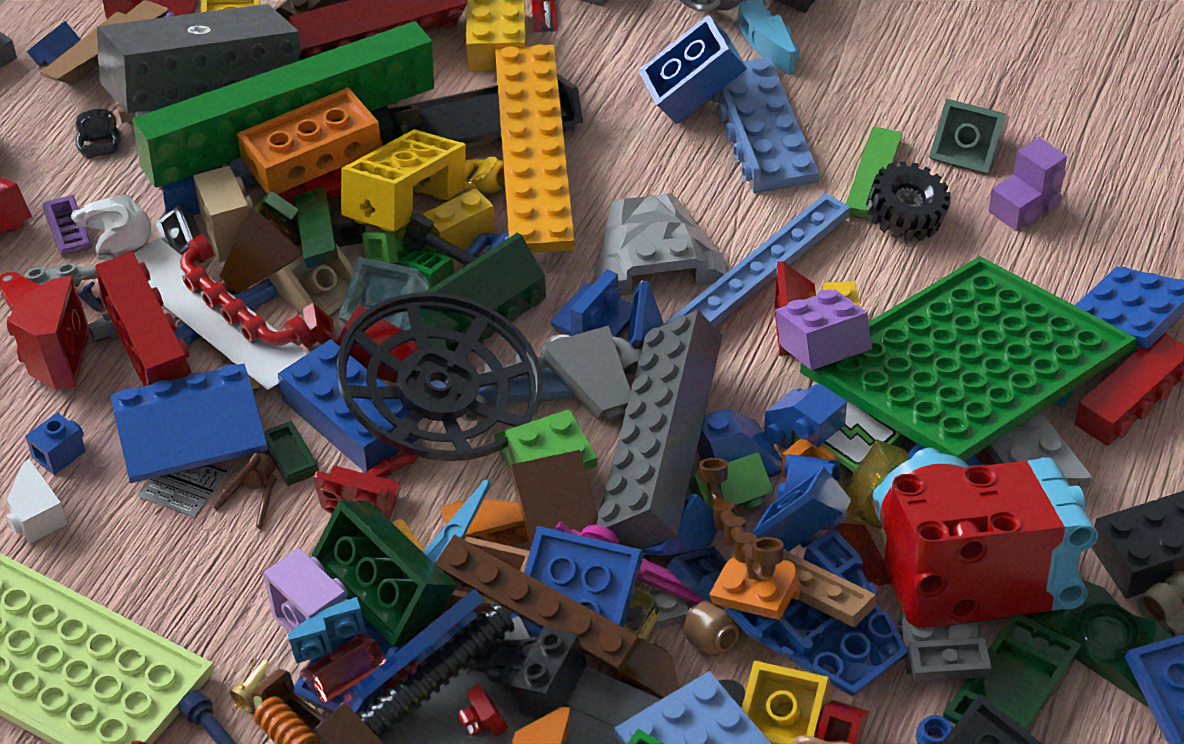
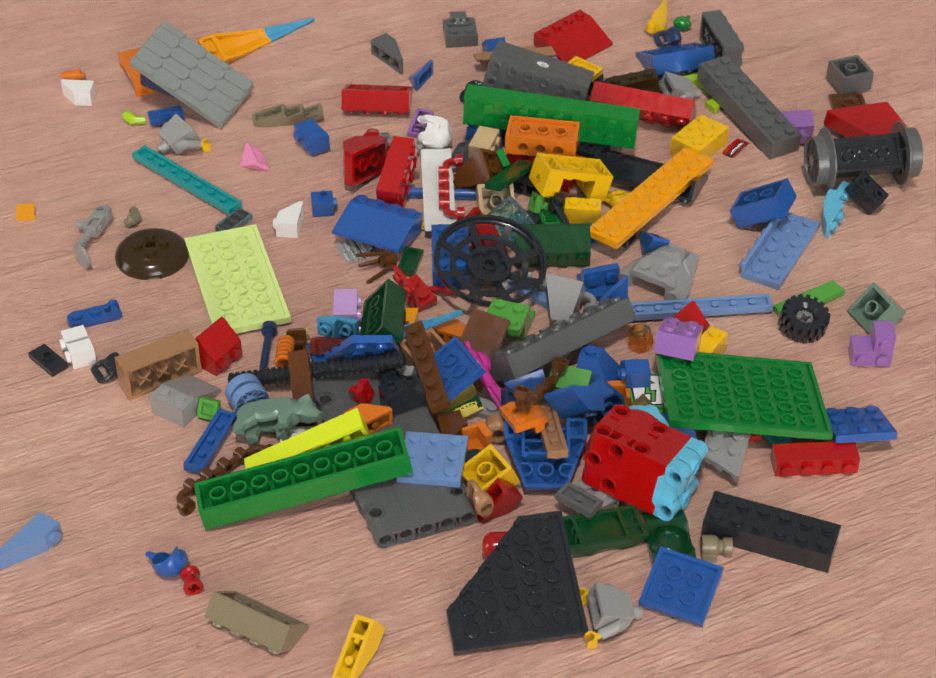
camera: 40 degrees right, 5 degrees down
(598, 211) = (651, 242): none -> blue slope
(699, 657) = (478, 435): none -> orange panel
(741, 360) = (640, 337): none -> clear orange head

